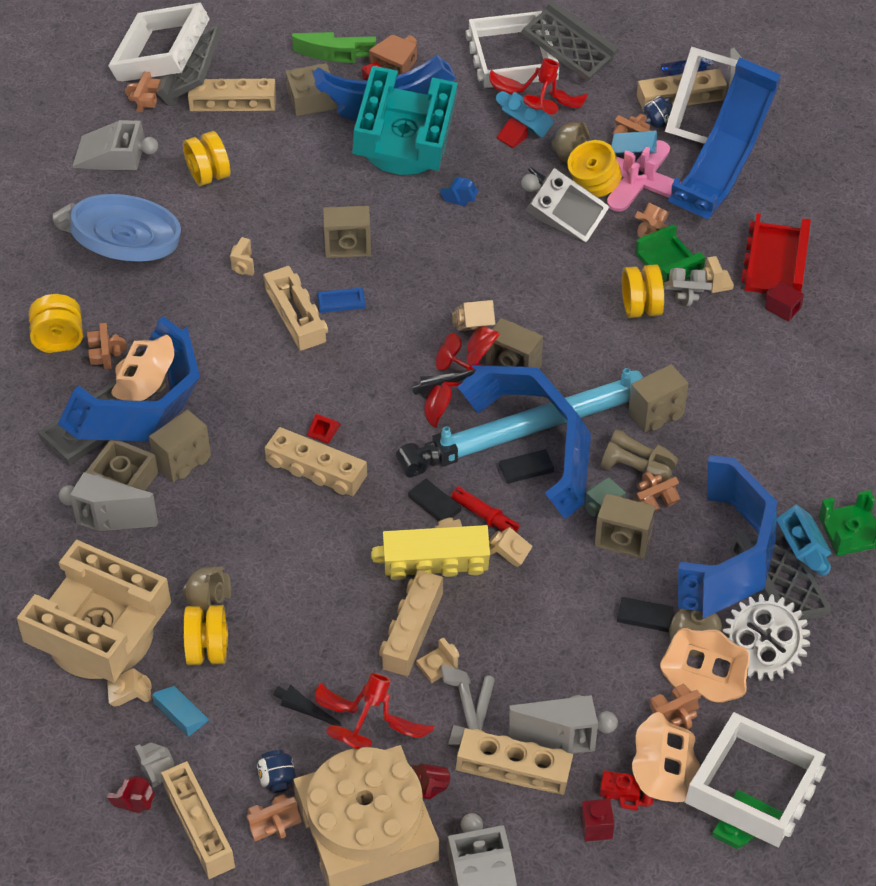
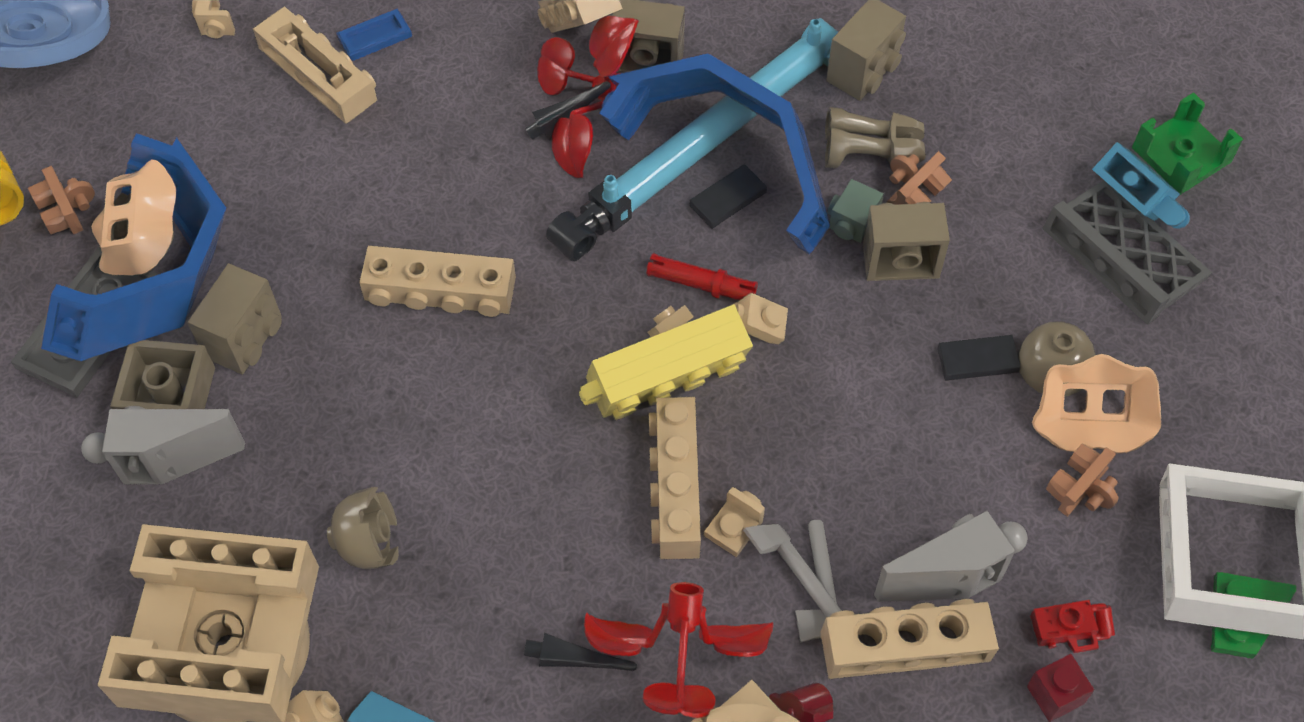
camera: 20 degrees left, 10 degrees up
(208, 634) = (393, 600): yellow wheel -> none
(323, 428) = (426, 228): red slope -> none
(434, 500) = (626, 285): black tile -> none
(651, 755) = (1095, 564): light nougat piece -> none
(722, 585) = (1086, 170): blue panel -> none
(781, 619) = (1168, 308): white gear -> none

